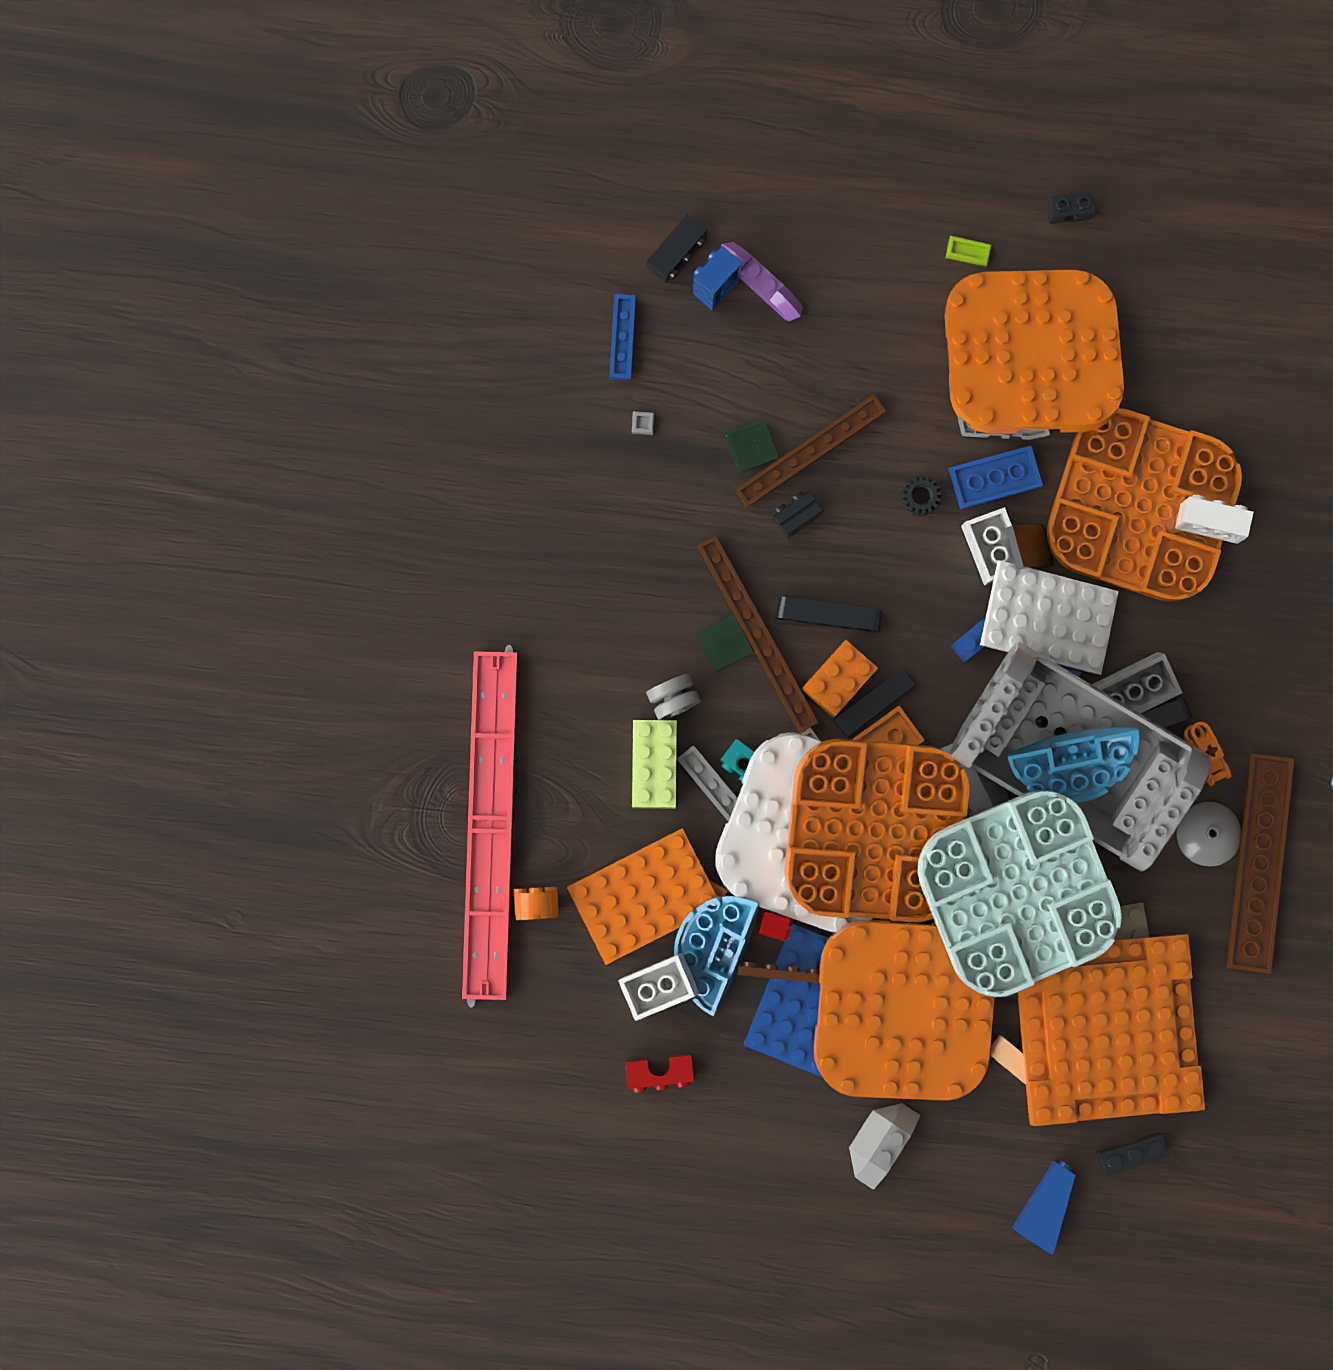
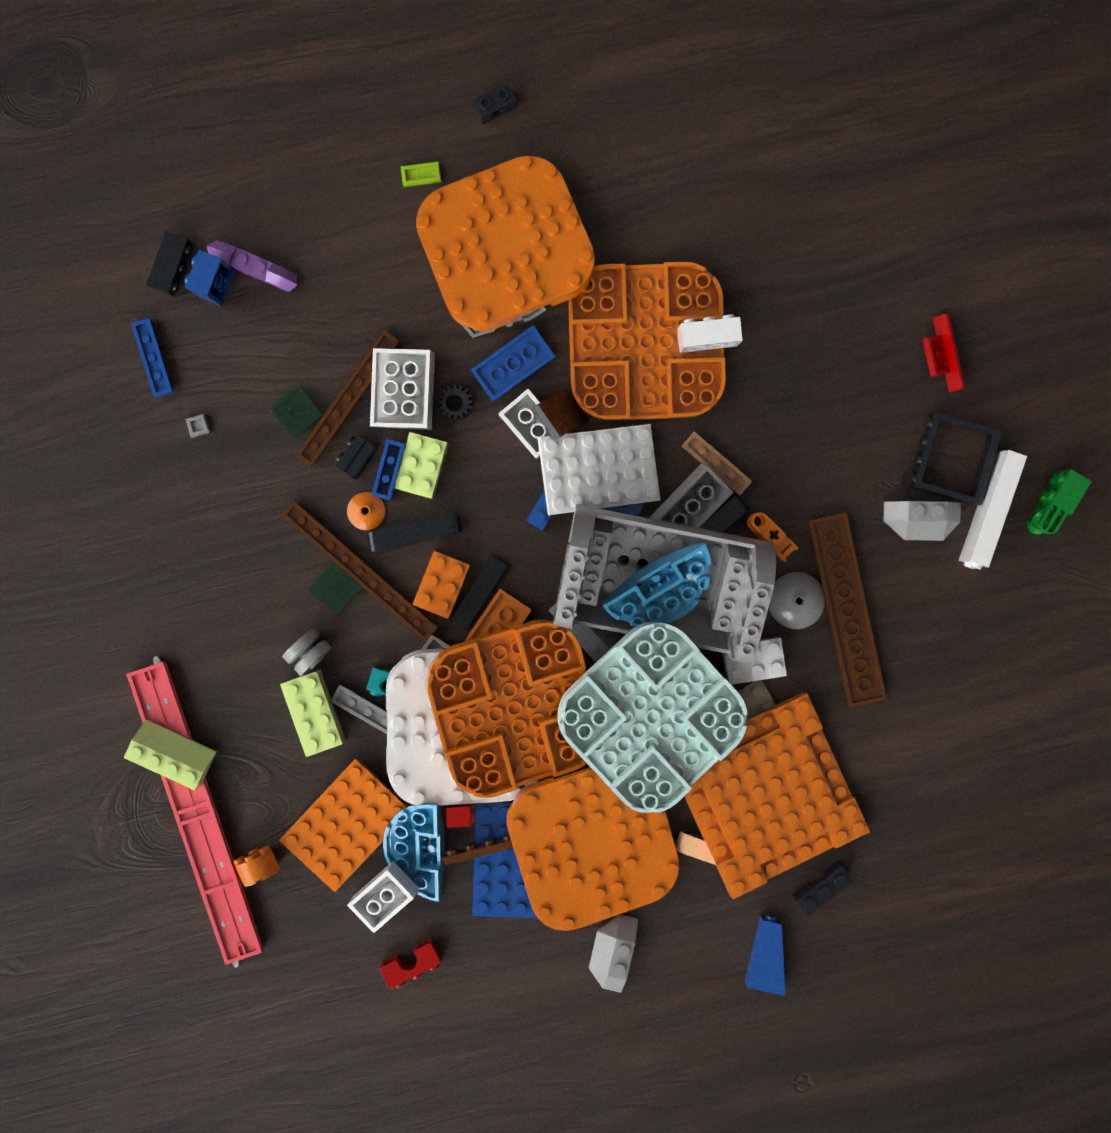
camera: 15 degrees left, 5 degrees up
(491, 751) = (170, 754): none -> yellowish green slope
(785, 585) = (375, 515): none -> orange dish
(828, 539) = (388, 470): none -> blue brick
(862, 547) = (421, 465): none -> yellowish green brick
(872, 461) = (402, 388): none -> white slope
(1152, 886) = (767, 664): none -> white brick
(1165, 643) = (717, 463): none -> medium nougat plate

